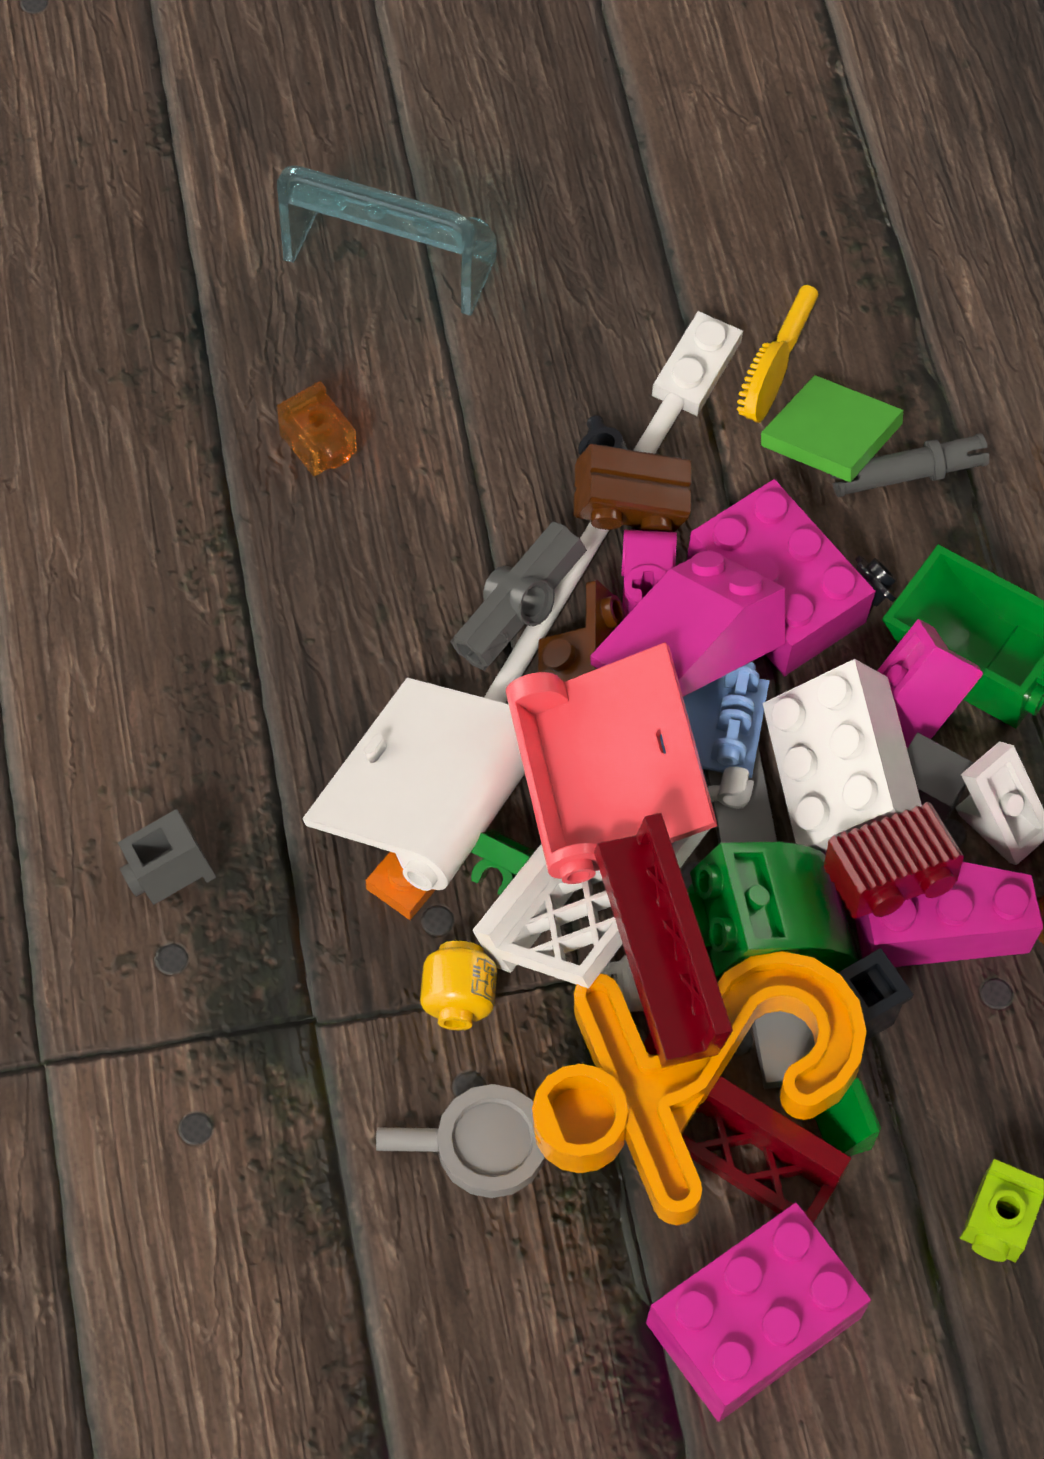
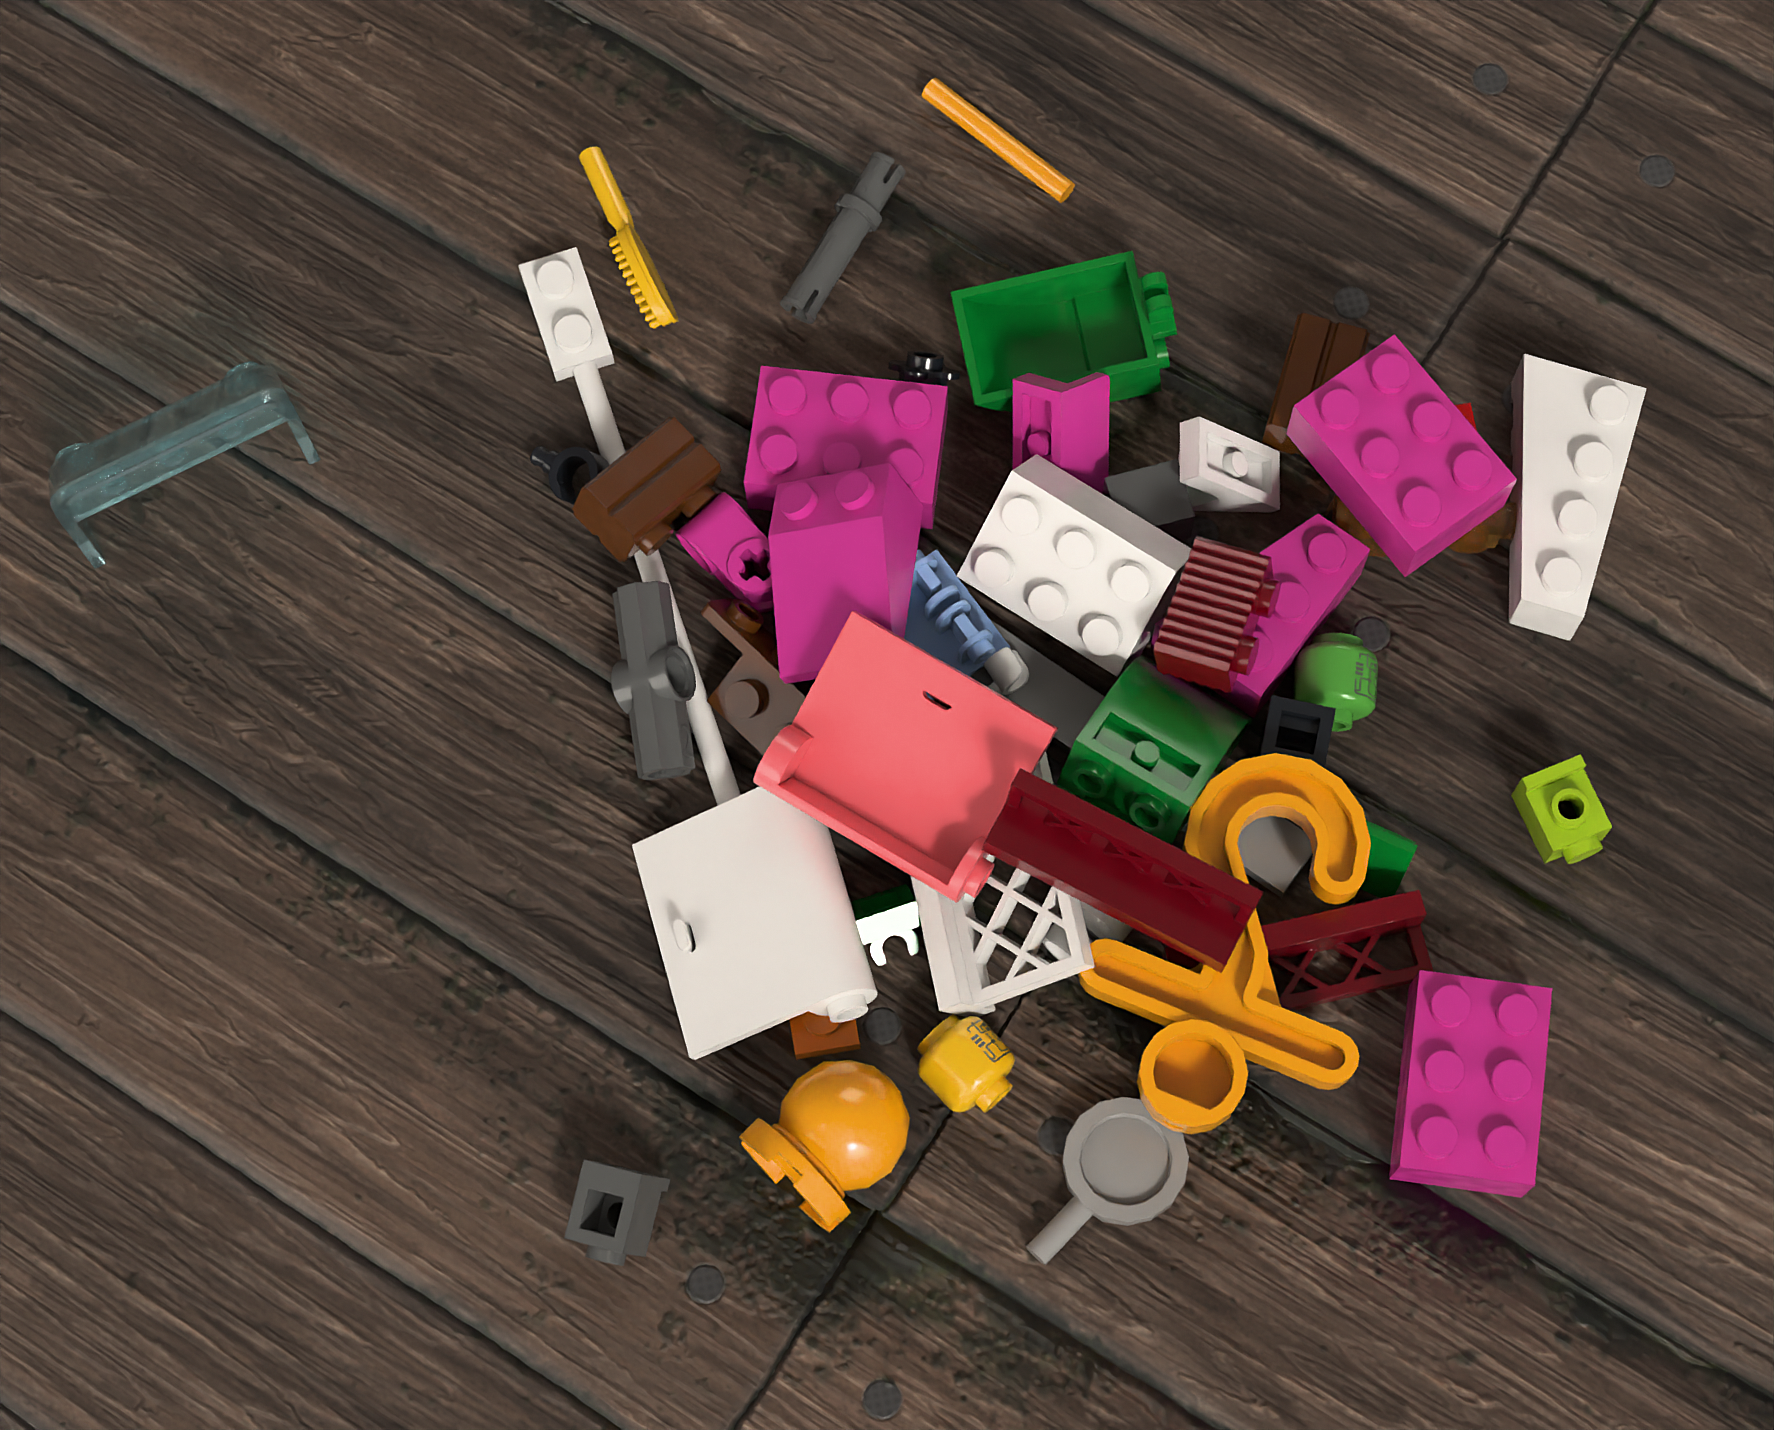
camera: 40 degrees left, 10 degrees up
(316, 429) = (326, 721): clear orange brick -> none
(333, 939) = (834, 1135): none -> light orange tile
(832, 428) = (748, 267): bright green tile -> none
(943, 992) = (1338, 675): none -> bright green head

